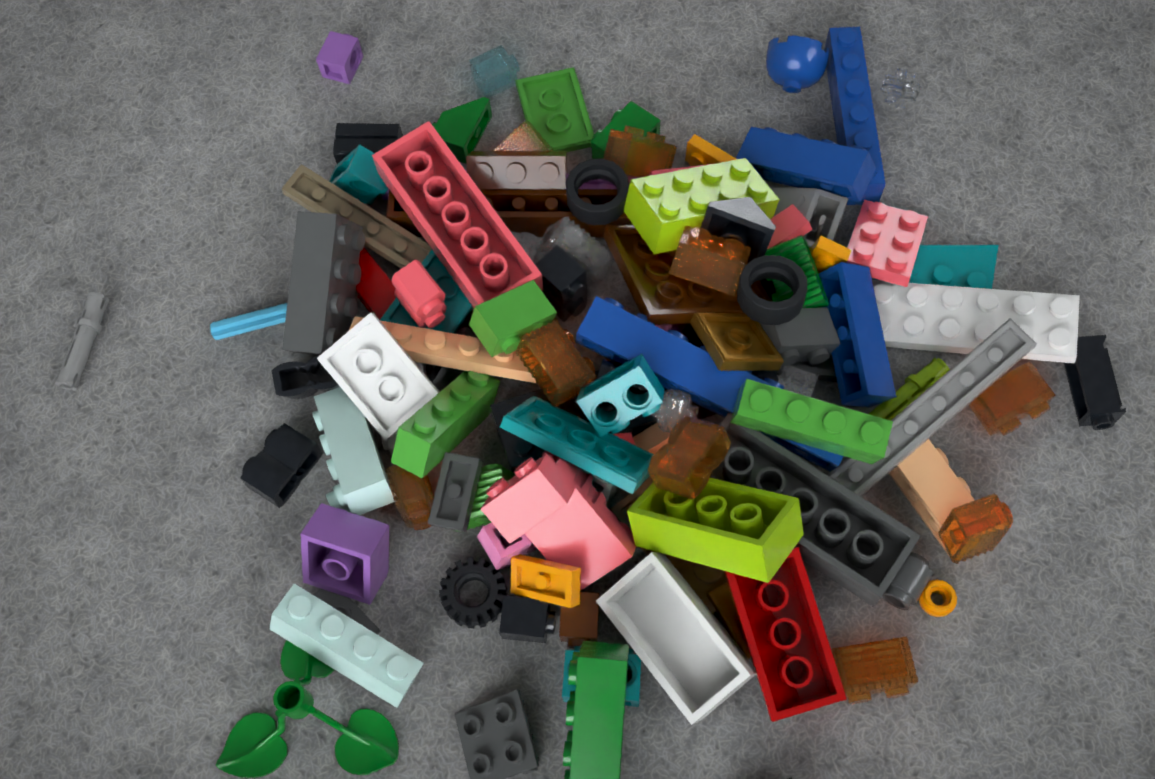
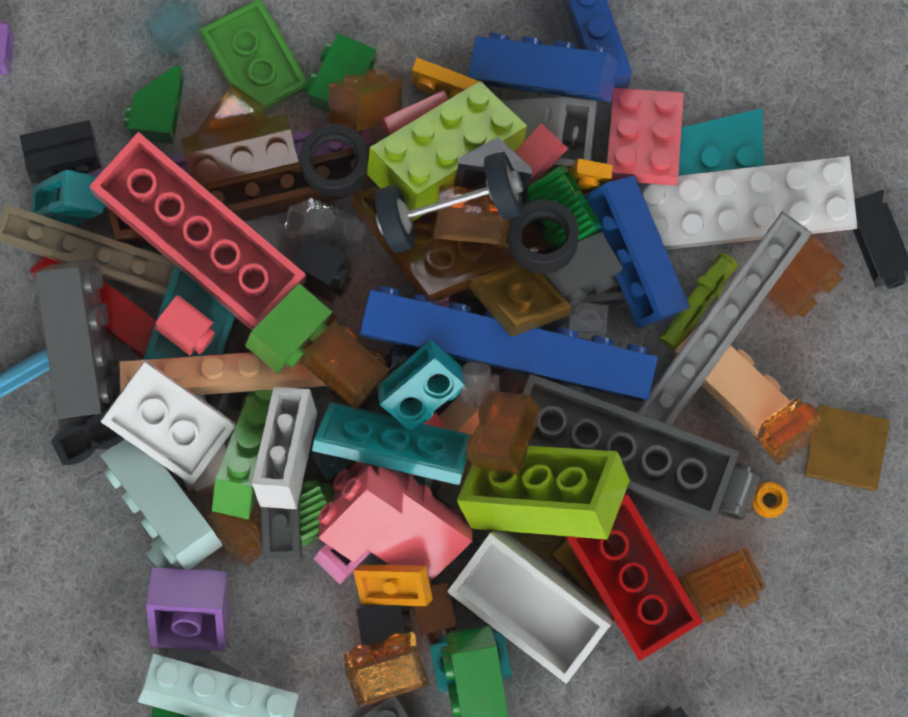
camera: 20 degrees left, 10 degrees up
(281, 464) = (87, 533): black brick -> none
(461, 575) = (307, 596): black tyre -> none
(474, 421) = (284, 448): none -> white brick
(515, 661) = (386, 669): none -> clear orange brick
(637, 241) = (396, 221): none -> black axle
(811, 422) = (611, 367): bright green brick -> none
(1027, 570) = (847, 448): none -> pearl gold tile

